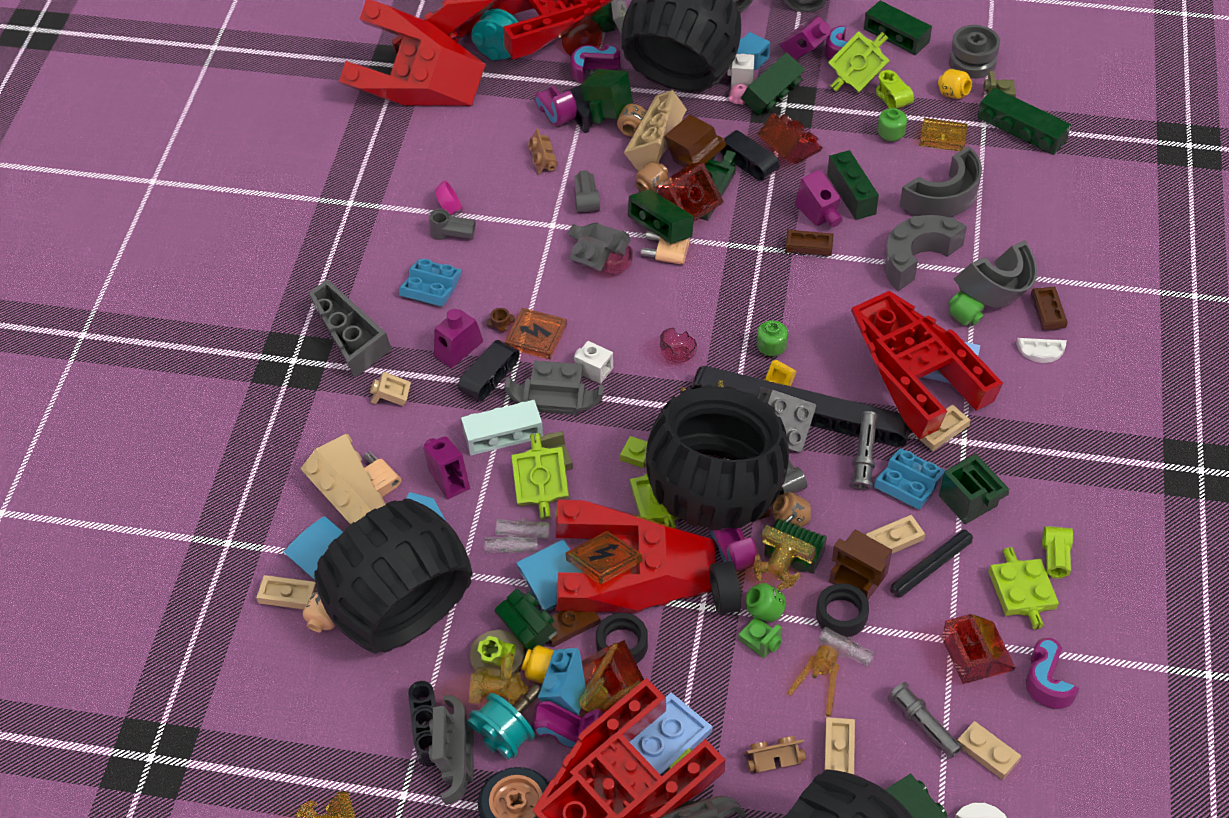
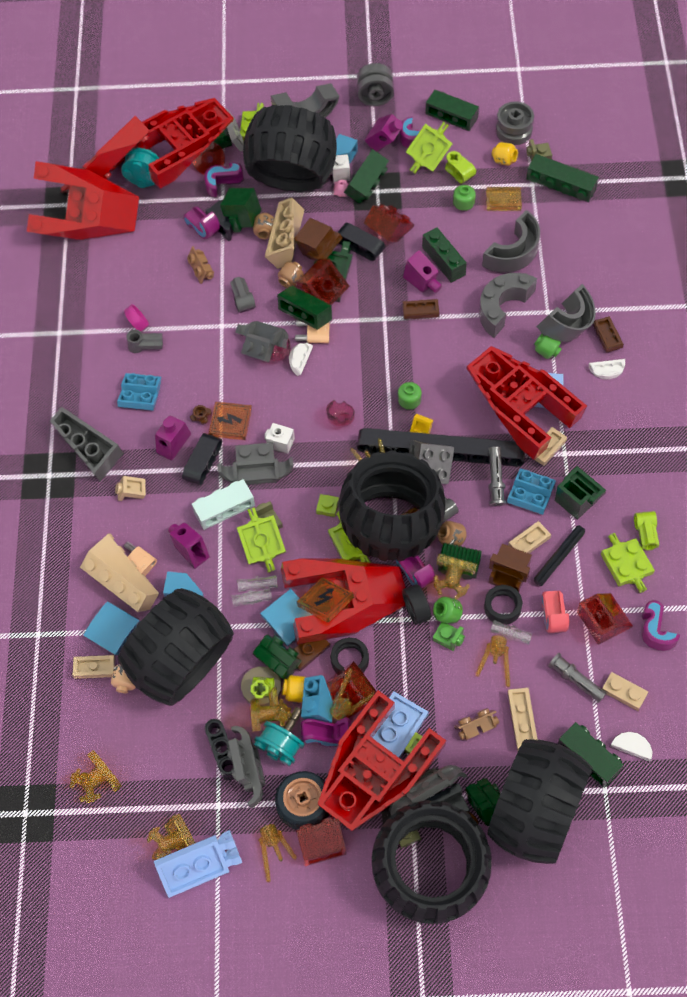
camera: 10 degrees left, 10 degrees up
(249, 728) = (94, 778): none -> clear yellow piece
(640, 273) = (299, 356): none -> white tile
(910, 631) = (554, 612): none -> coral animal

